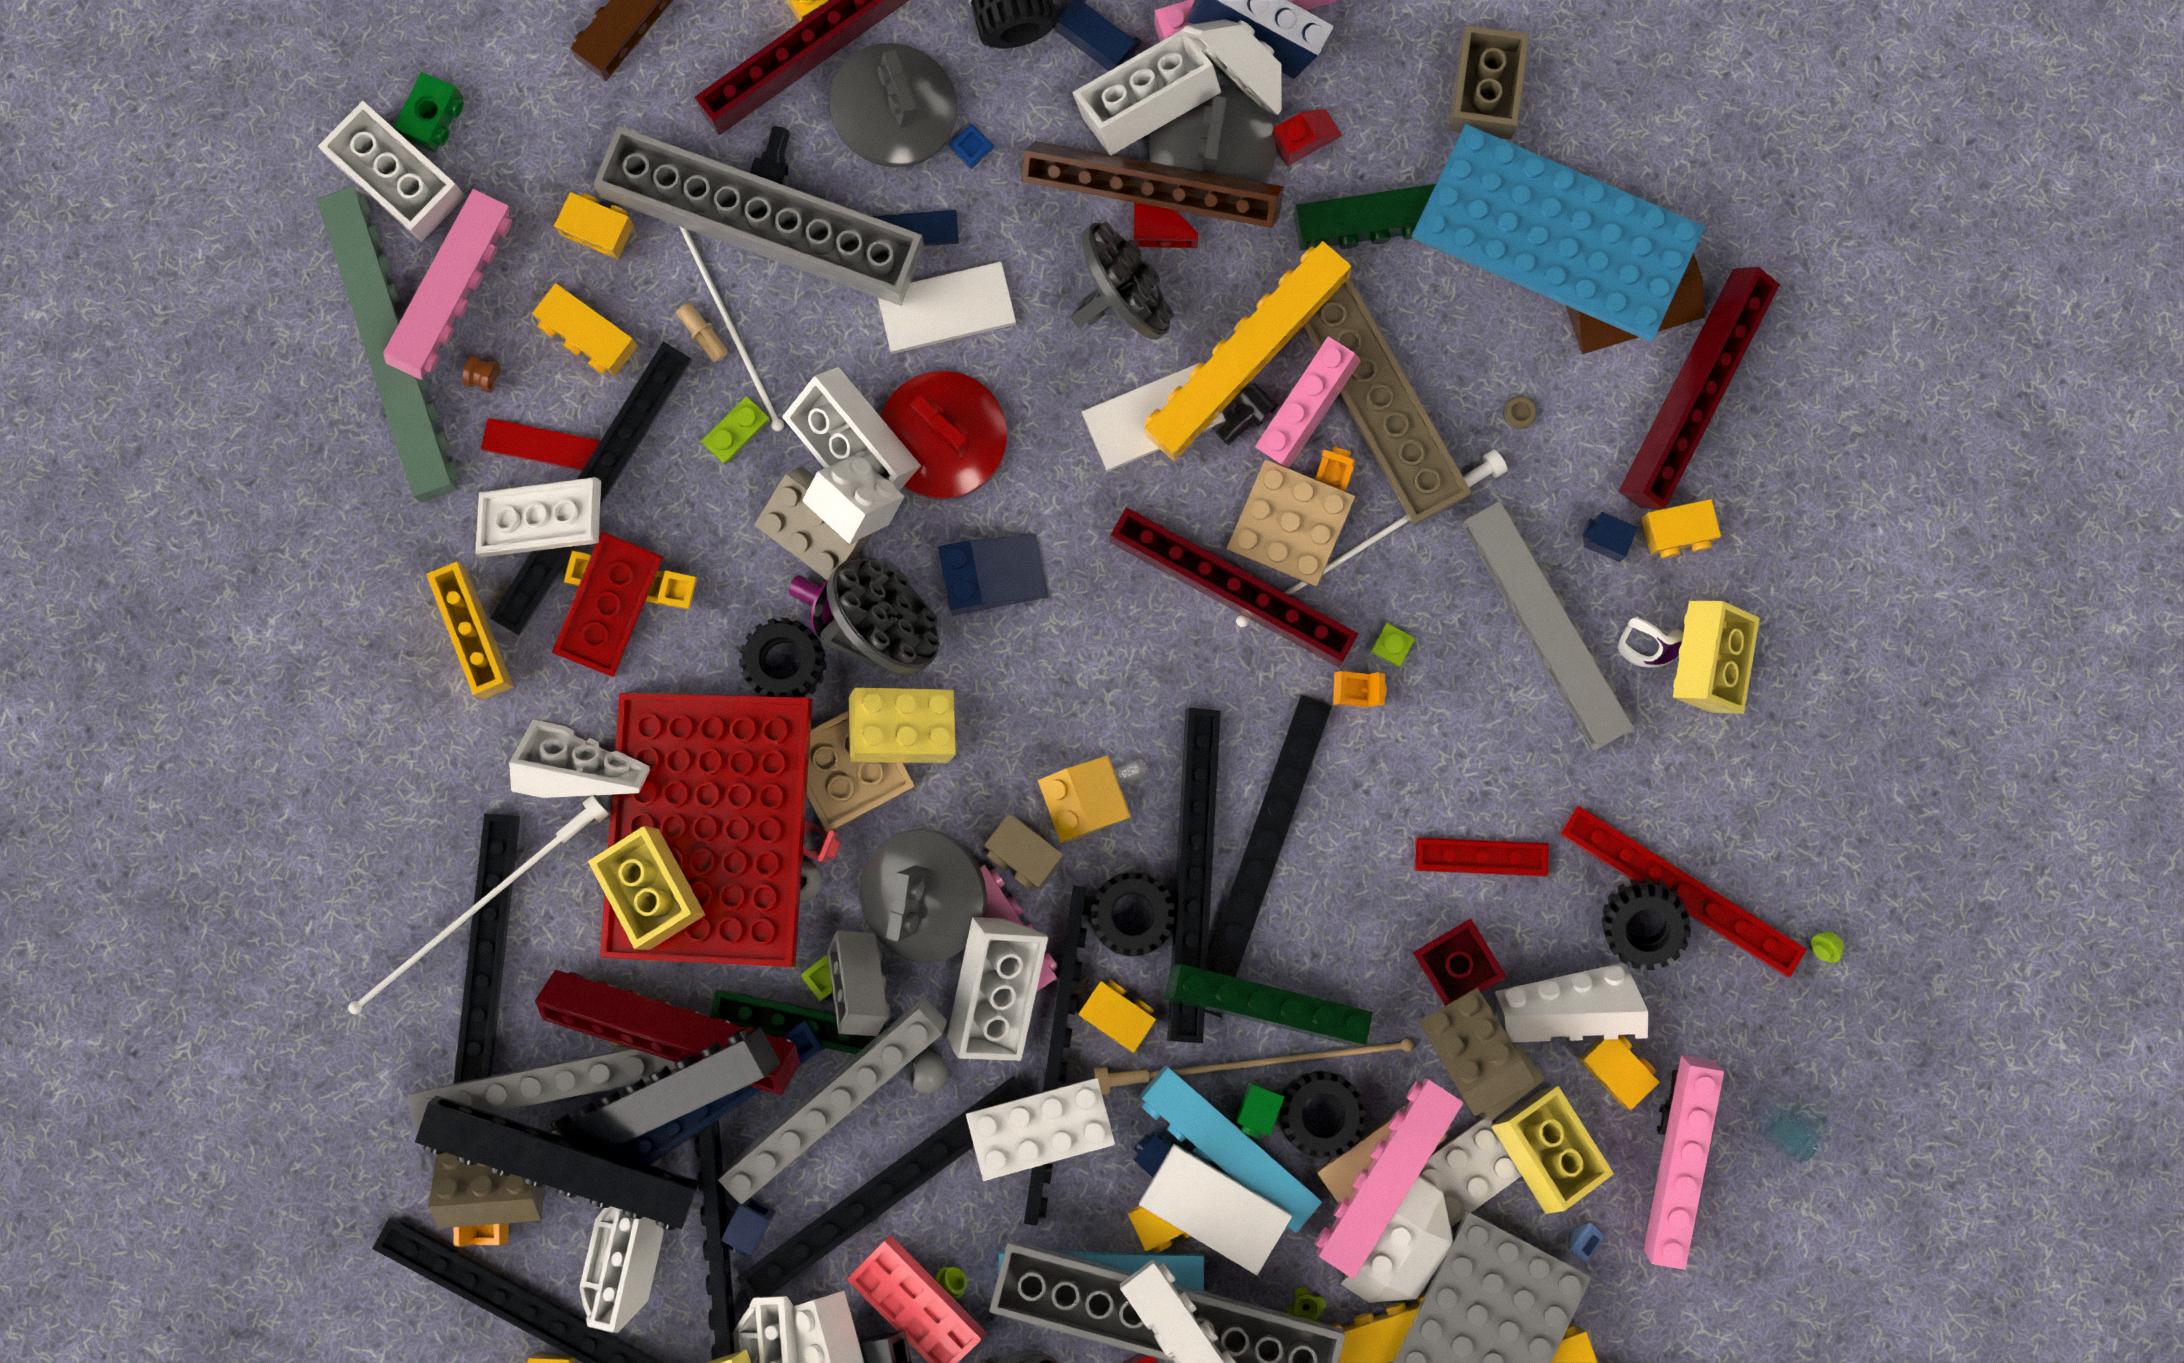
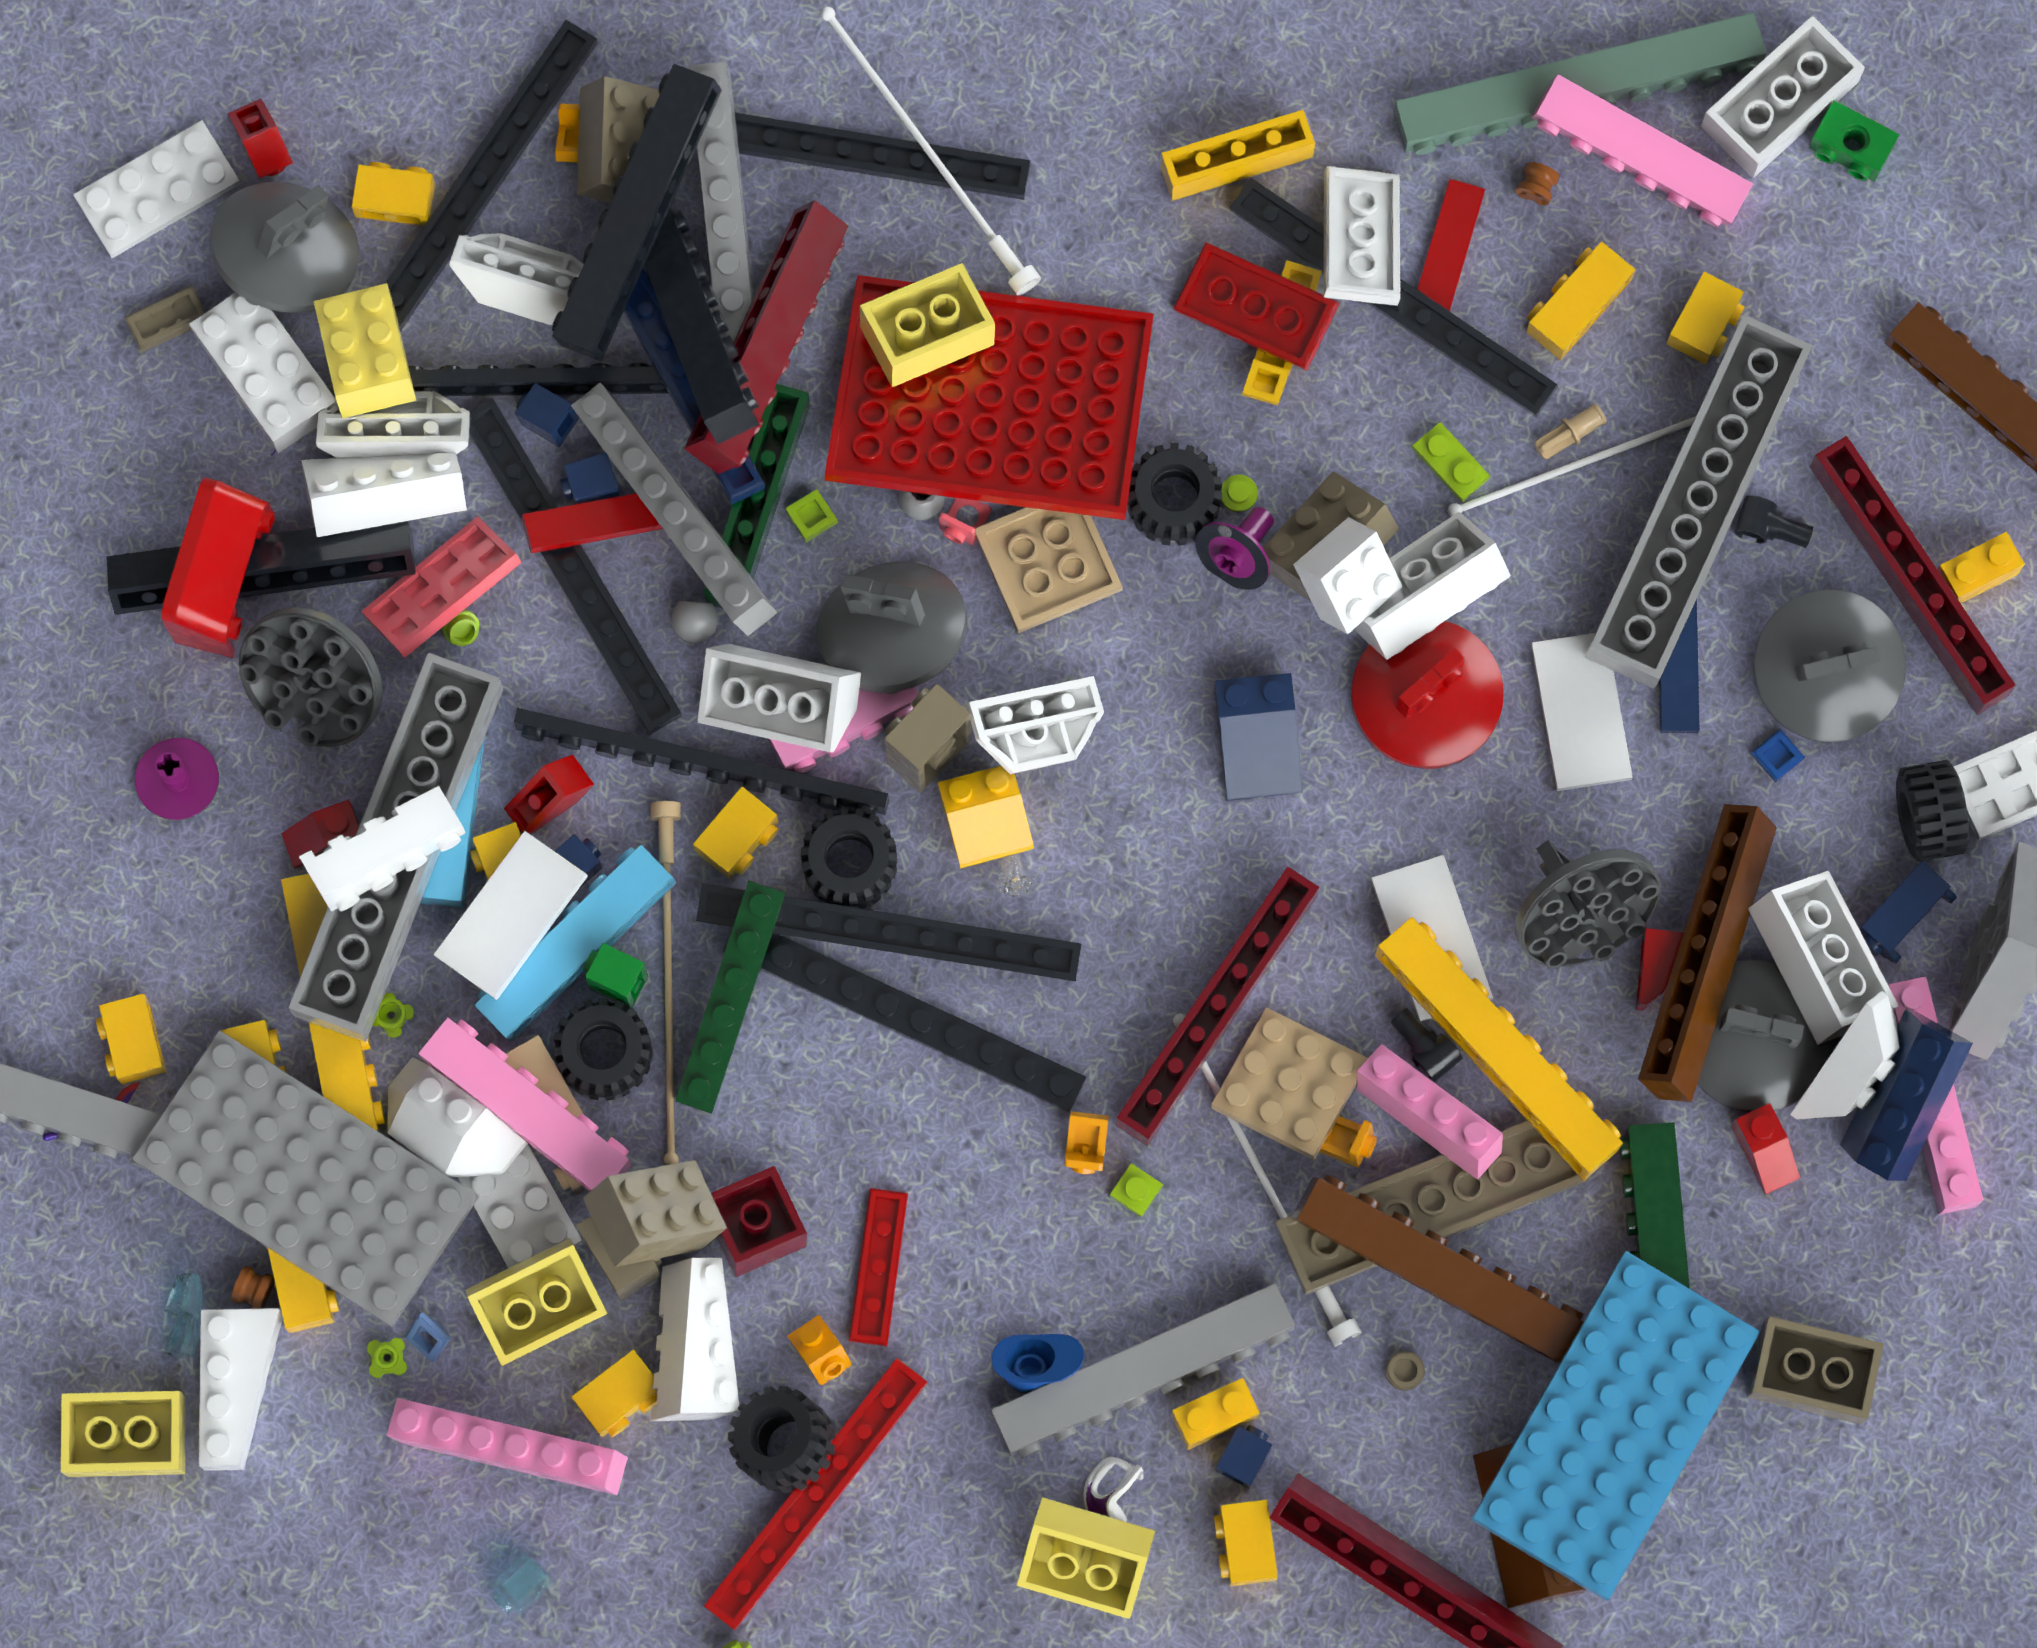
camera: 95 degrees right, 5 degrees down
(560, 764) = (1076, 248): white wedge -> none
(776, 605) = (1239, 493): none -> lime plate
(807, 1180) = (590, 480): none -> dark blue brick
(847, 1180) = (587, 523): none -> red tile
(858, 983) = (800, 546): light grey brick -> none
(879, 618) = (1212, 601): dark grey bracket -> none
(901, 725) = (1087, 617): light yellow brick -> none
(1001, 760) = (1037, 724): none -> white wedge
(1040, 1129) = (619, 733): white plate -> none
(1097, 1187) = (549, 794): none -> red slope
(1442, 386) = (1438, 1269): none -> reddish brown brick
(1551, 712) = (1036, 1360): none -> blue piece
(1559, 900) = (820, 1350): none -> light orange bracket
(1578, 562) = (1215, 1413): none -> yellow brick
(1599, 1272) = (394, 1365): none -> lime plate

